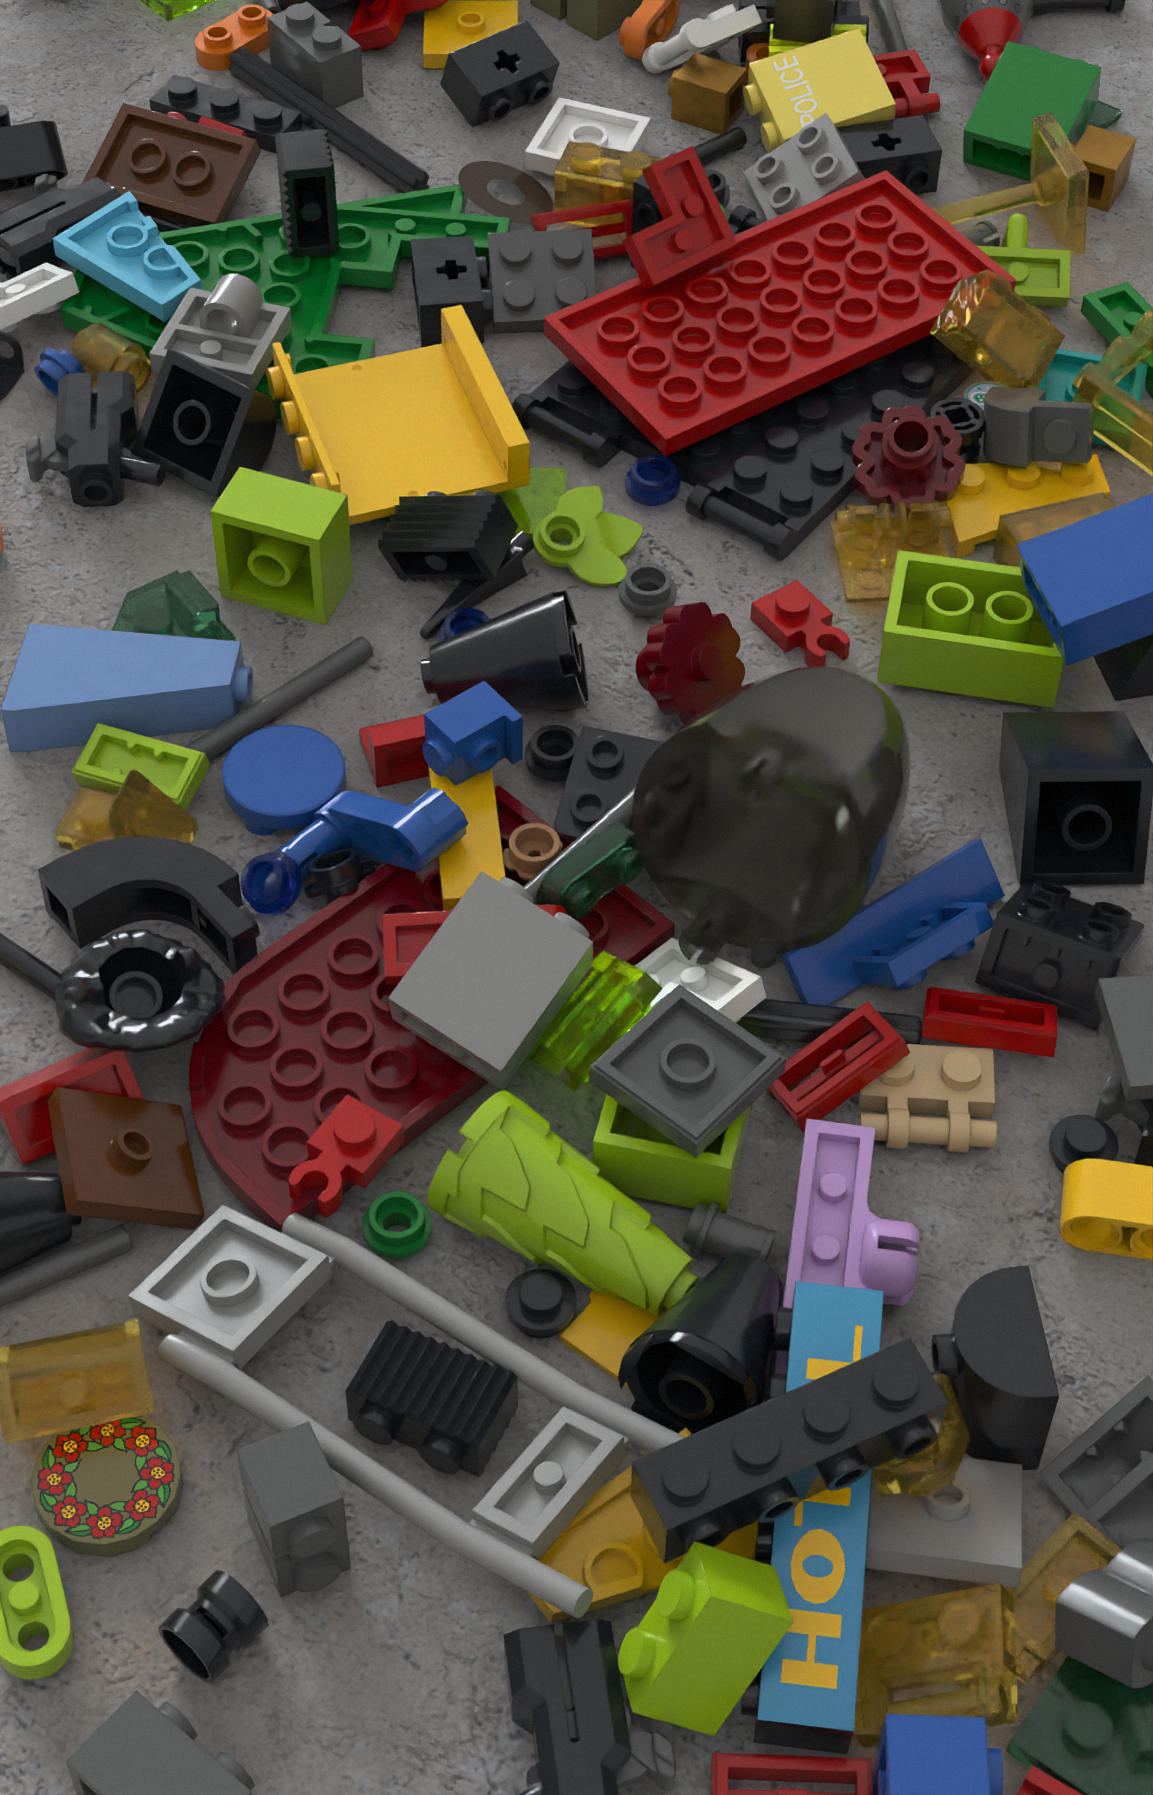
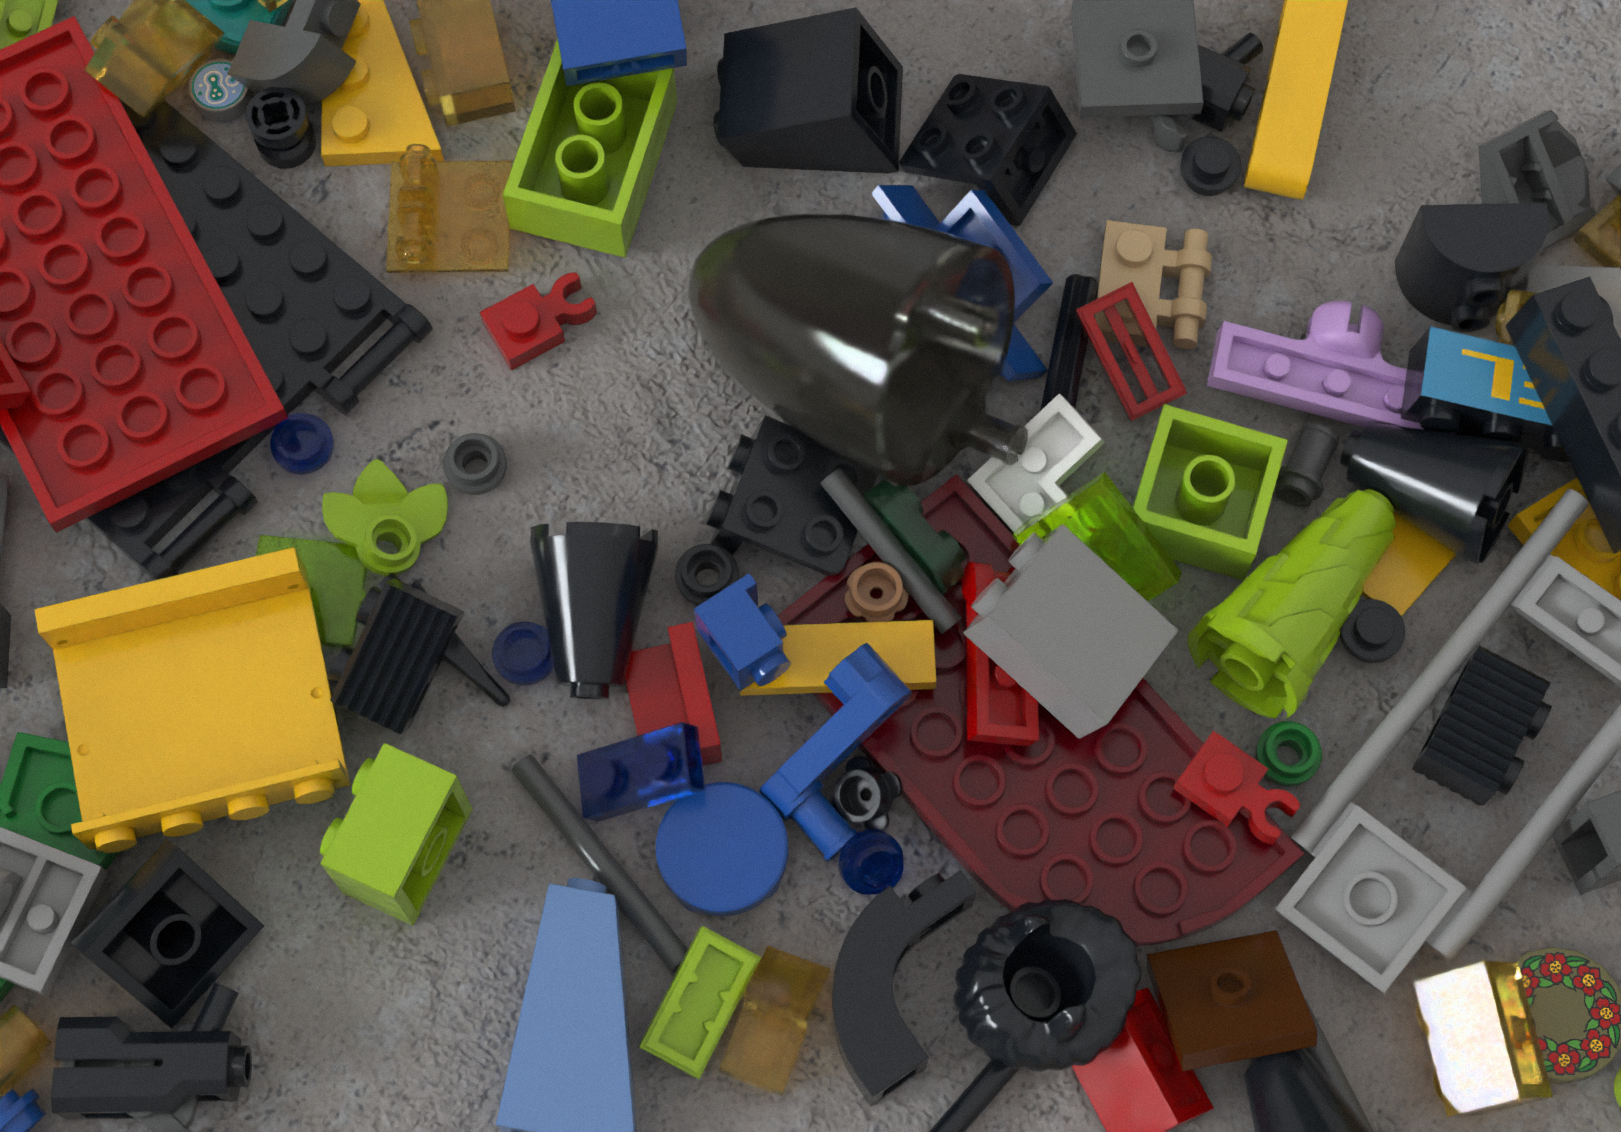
camera: 85 degrees left, 20 degrees up
(172, 607) = (469, 979): clear green plate -> none
(350, 703) = (640, 772): none -> clear blue plate
(687, 1070) = (1197, 459): dark grey plate -> none
(690, 660) = (616, 426): dark red plant -> none
(907, 458) = (335, 173): dark red plant -> none
(990, 1021) = (1095, 220): red tile -> none

